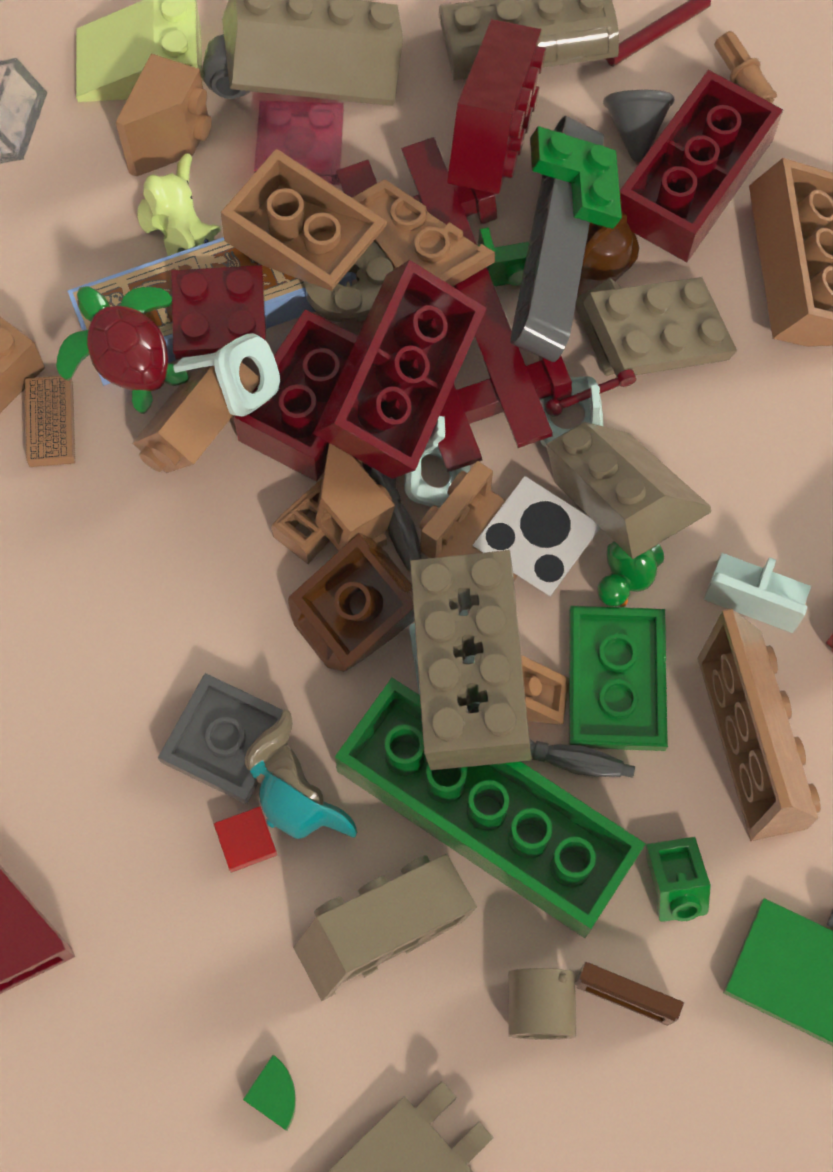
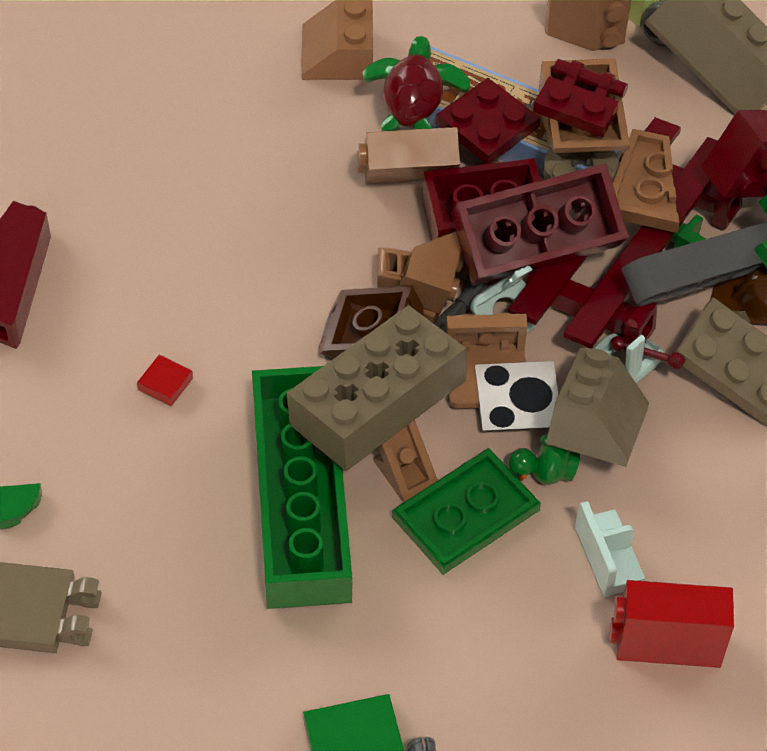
camera: 50 degrees right, 15 degrees down
(49, 421) = (338, 103): medium nougat tile -> none
(170, 209) = (540, 47): yellowish green animal -> none
(215, 736) = (219, 323): dark grey plate -> none
(227, 365) = (435, 133): light aqua piece -> none
(284, 791) = (214, 371): hair -> none
(303, 131) = (663, 91): clear pink plate -> none
(304, 227) = (578, 106): none -> dark red plate
(382, 922) = (173, 478): dark tan wedge -> none
(541, 1004) = (197, 603): dark tan piece -> none
(579, 759) = (382, 517): dark grey piece -> none
(629, 994) = (248, 652): reddish brown tile -> none
(679, 879) = (353, 632): green bracket -> none
(756, 729) = (499, 595): medium nougat slope -> none

